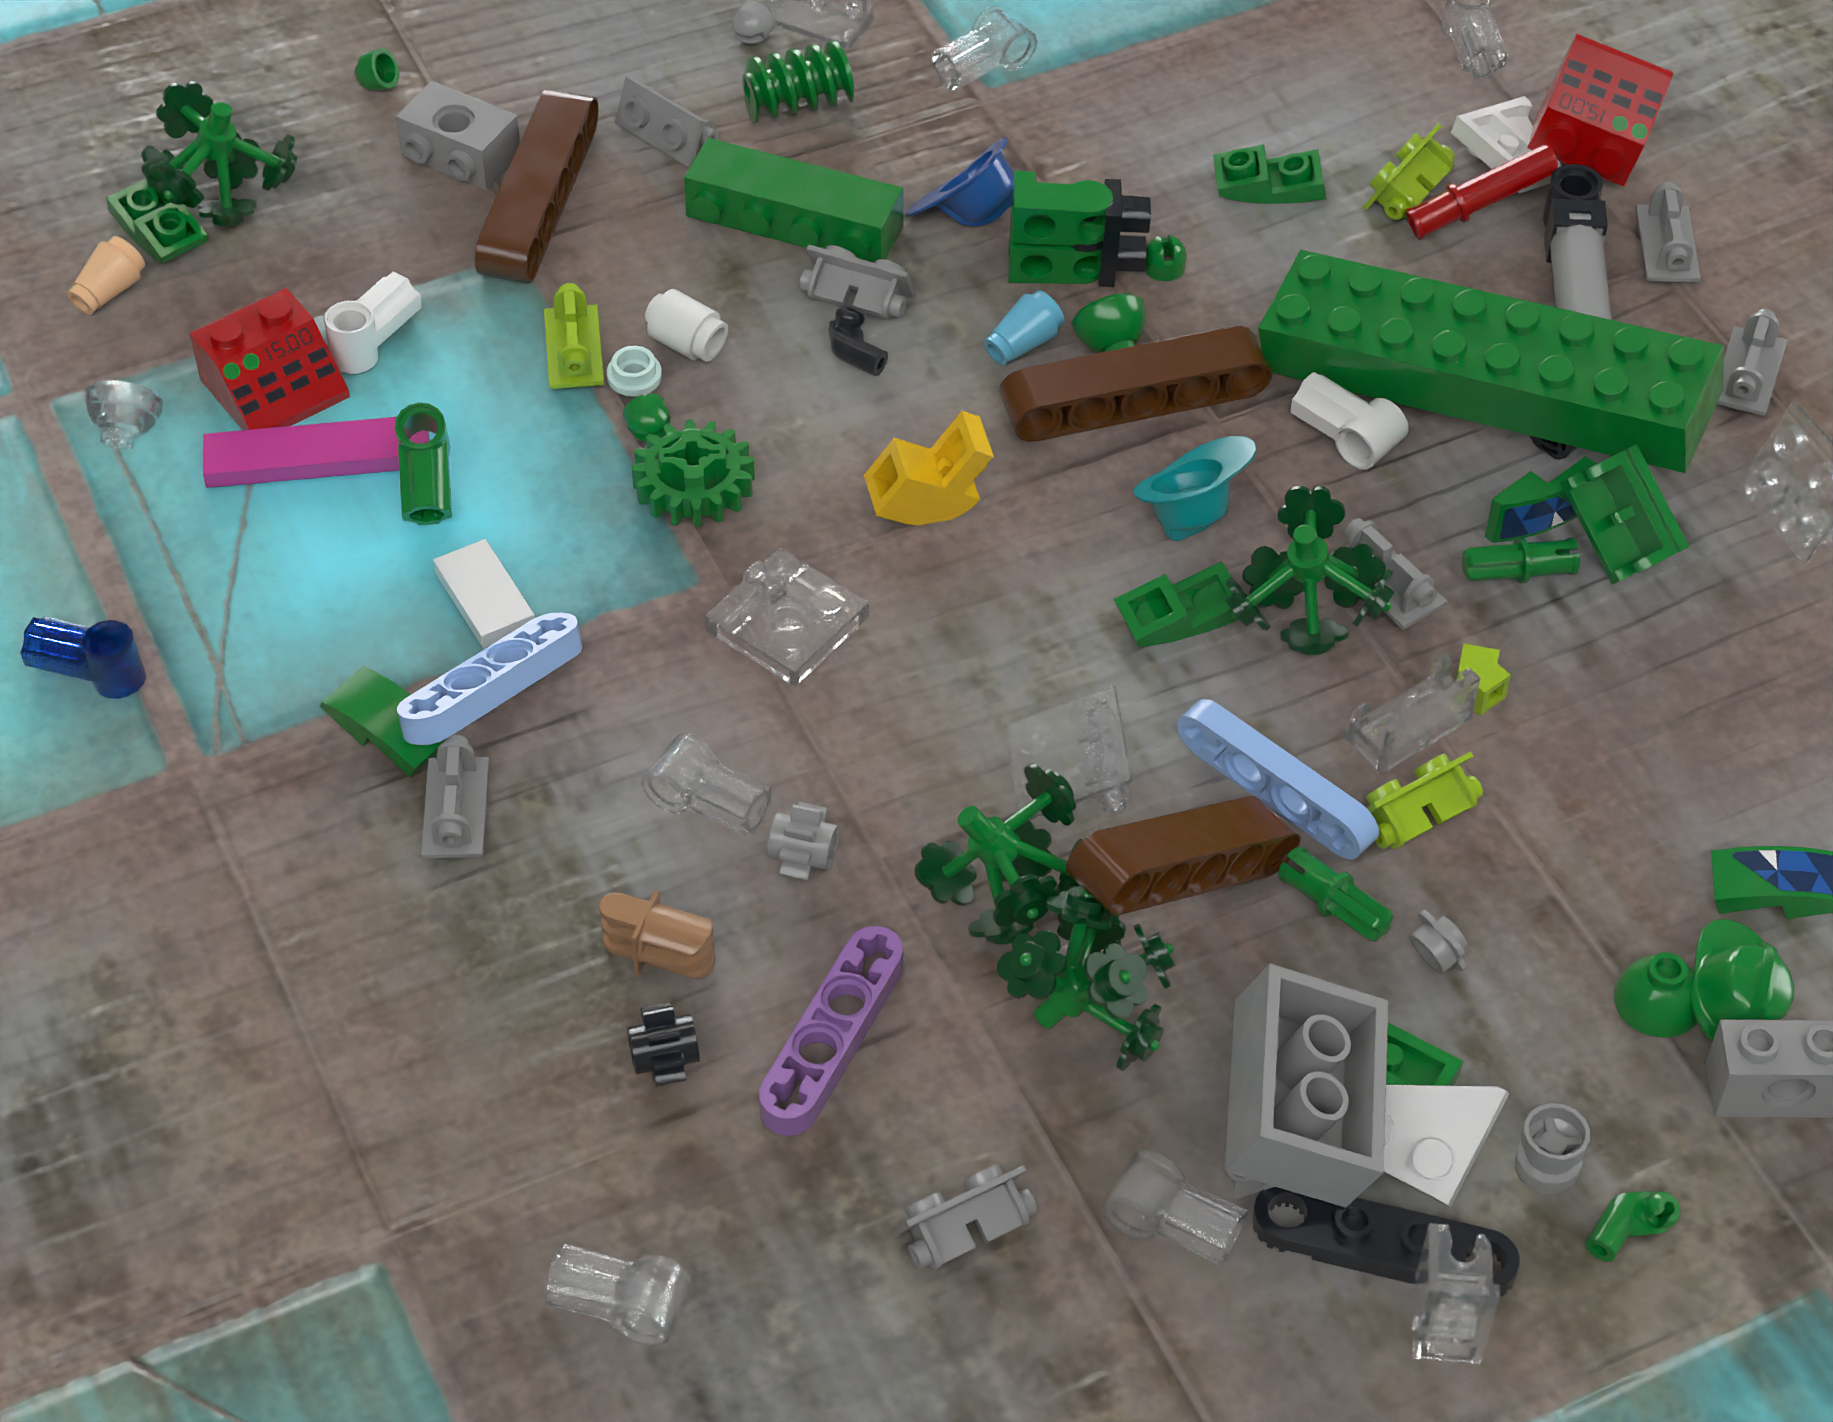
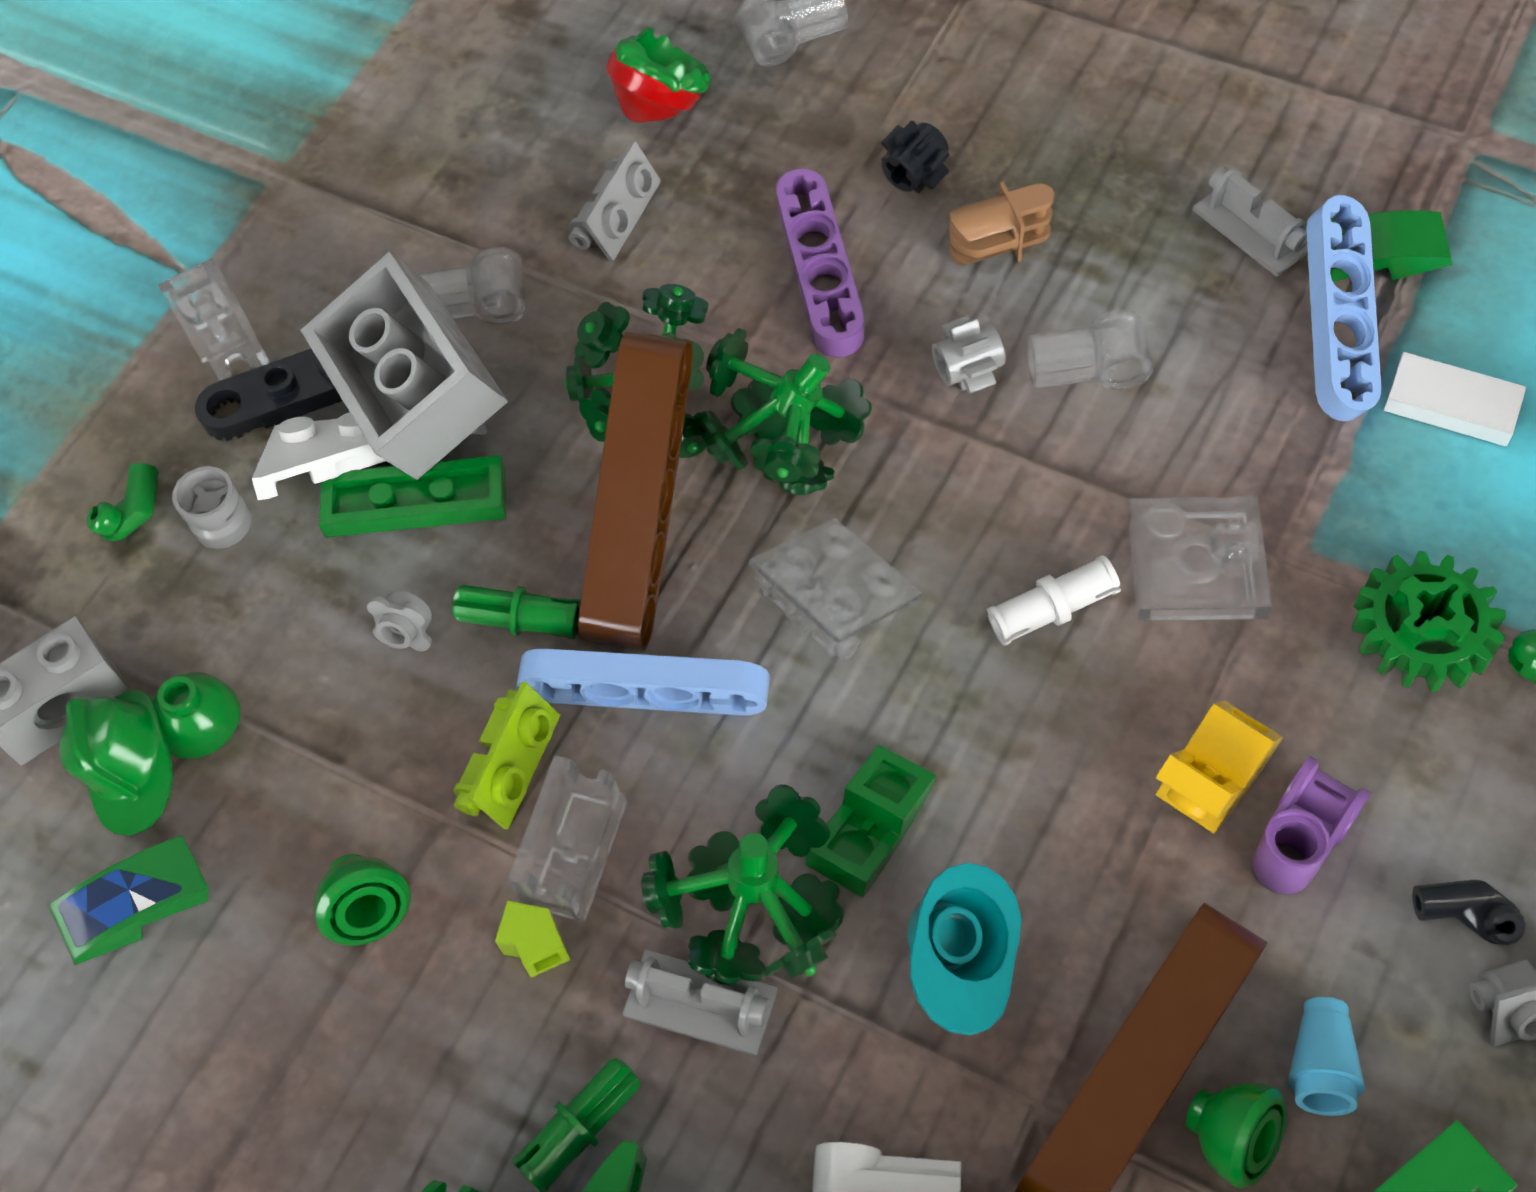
camera: 150 degrees right, 10 degrees up
(813, 1297) = (655, 78): none -> hair
(910, 414) = (1311, 818): none -> medium lavender piece
(922, 645) = (1054, 600): none -> white pin
(1594, 766) = (360, 900): none -> green brick

